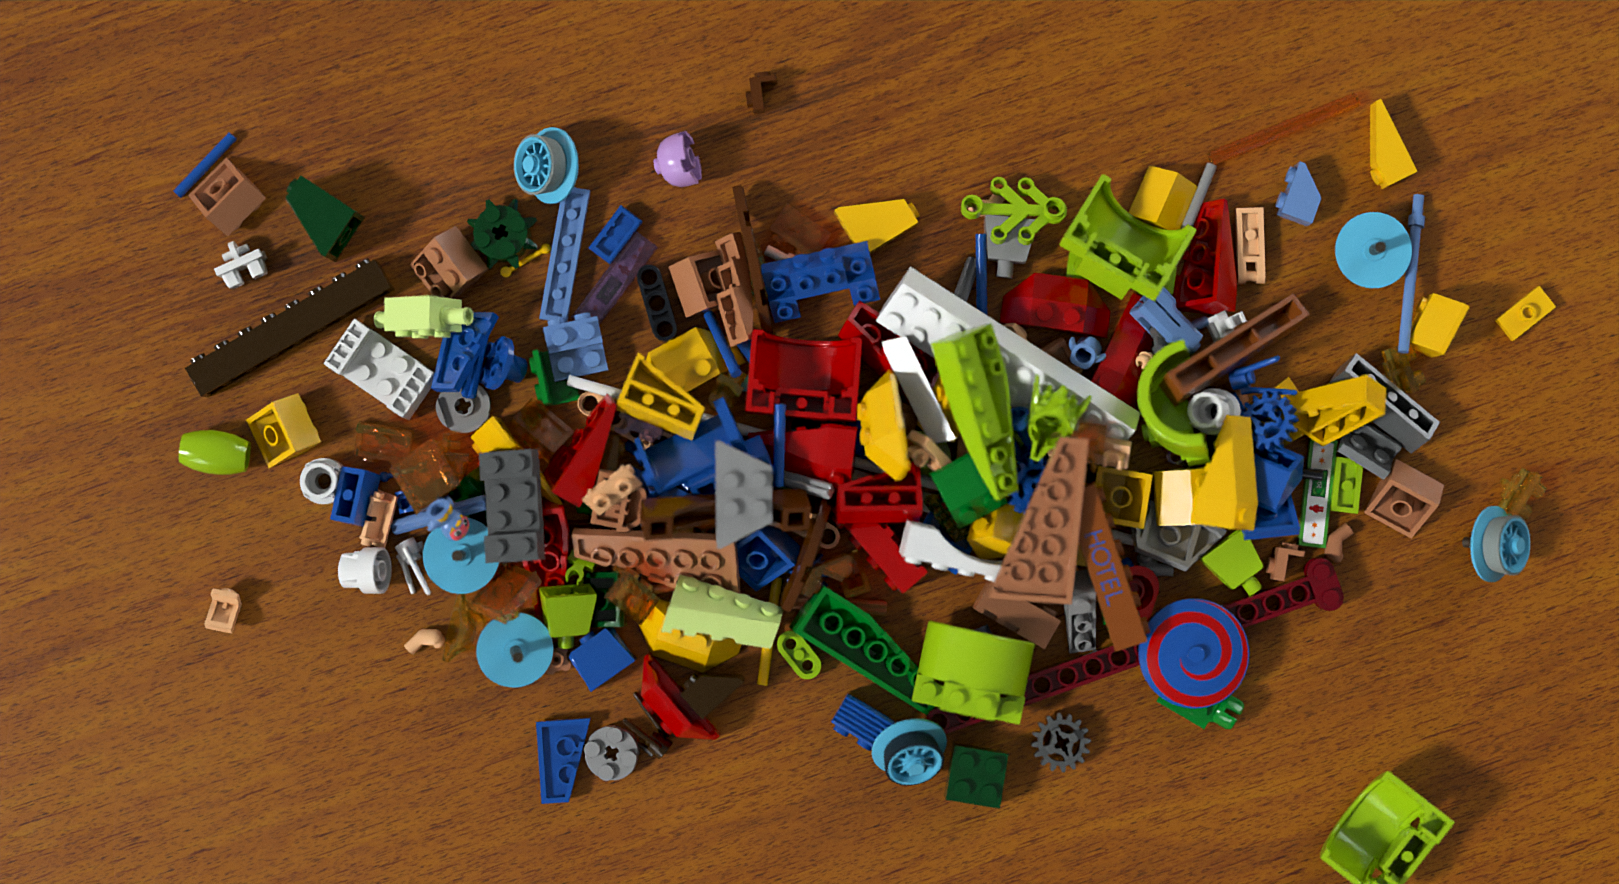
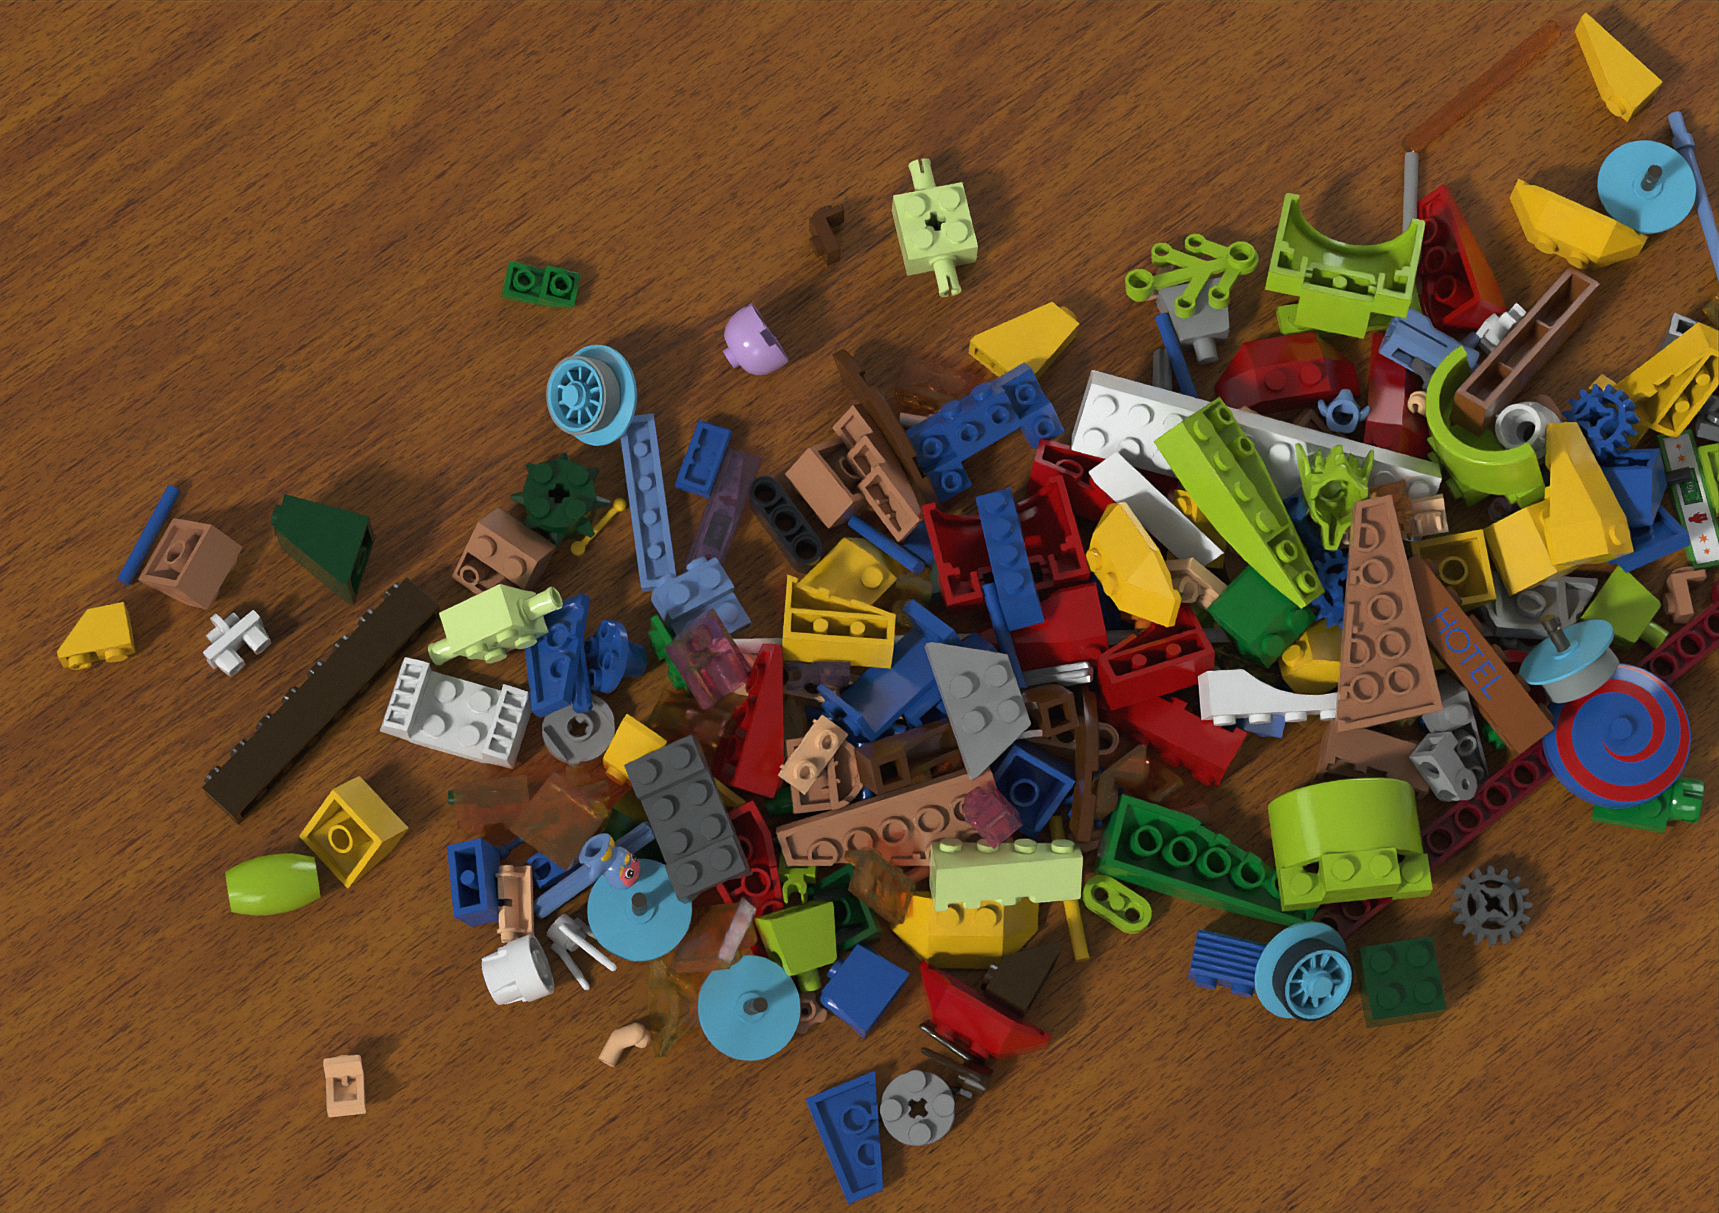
camera: 25 degrees left, 15 degrees down
(148, 230) = (98, 636): none -> yellow slope
(310, 476) = (411, 867): white piece -> none
(540, 64) = (540, 286): none -> green slope
(563, 395) = (708, 659): none -> clear pink plate
(724, 574) = (990, 814): none -> clear pink brick
(798, 405) = (1009, 559): none -> blue arch
(851, 126) = (936, 207): none -> yellowish green brick
(1059, 637) = (1443, 768): none -> light grey leg
(1163, 199) = (1367, 208): yellow slope -> none
(1178, 594) = (1571, 659): none -> piece
(1244, 376) = (1547, 383): blue plant -> none
(1250, 244) = (1494, 231): light nougat plate -> none
(1300, 197) = (1533, 154): medium blue slope -> none
(1306, 262) = (1572, 229): none -> yellow wedge

